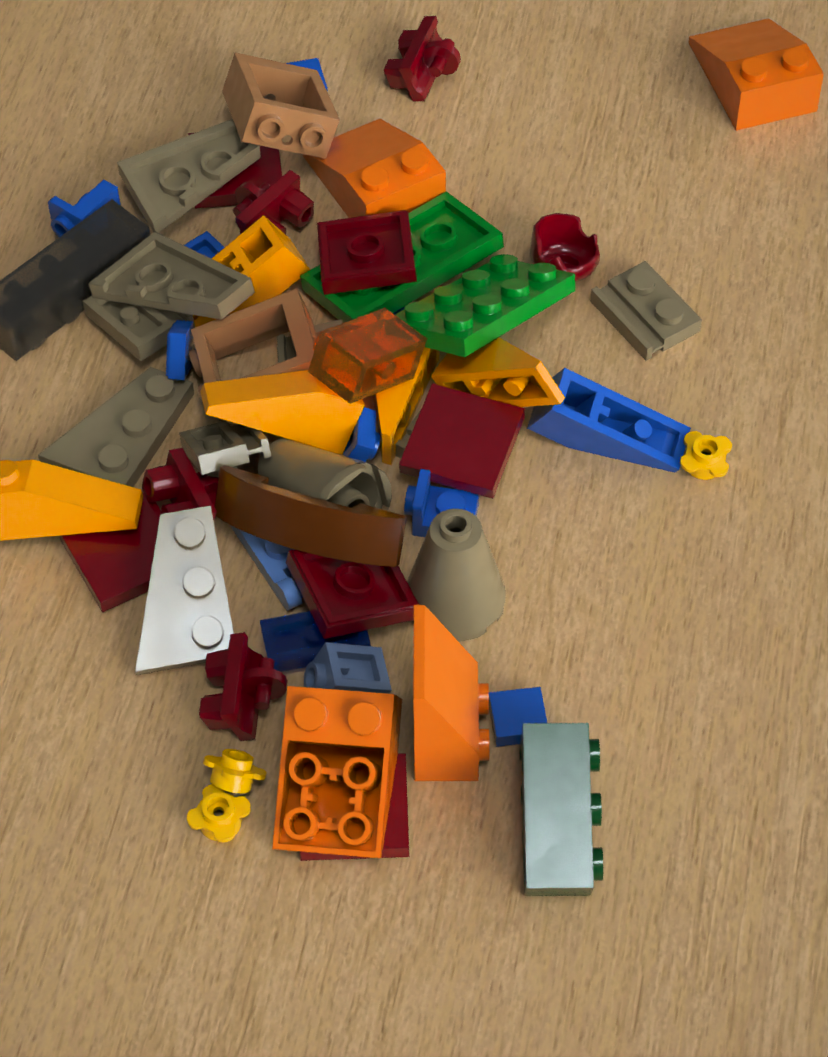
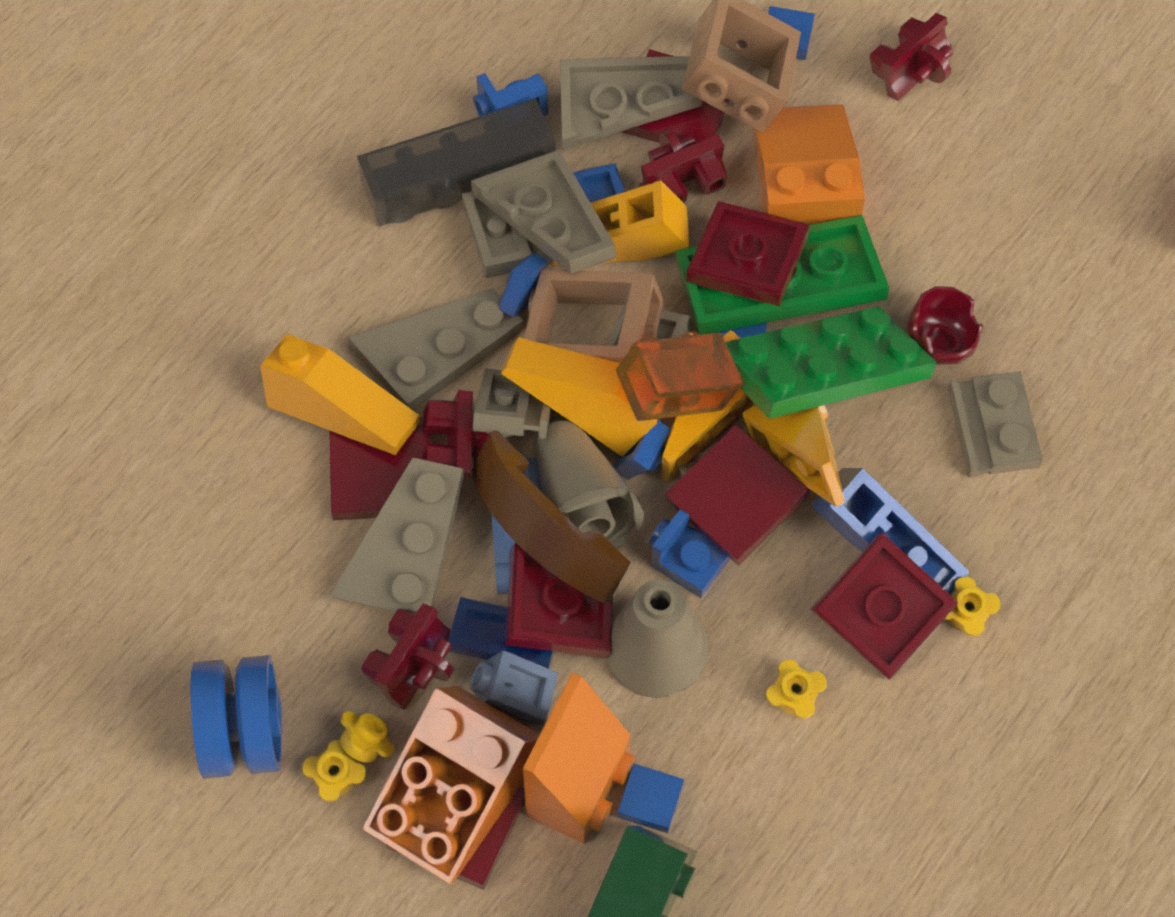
camera: 25 degrees right, 10 degrees up
(108, 795) = (233, 717): none -> blue wheel
(596, 589) = (800, 703): none -> yellow plate
(636, 477) = (884, 605): none -> dark red tile

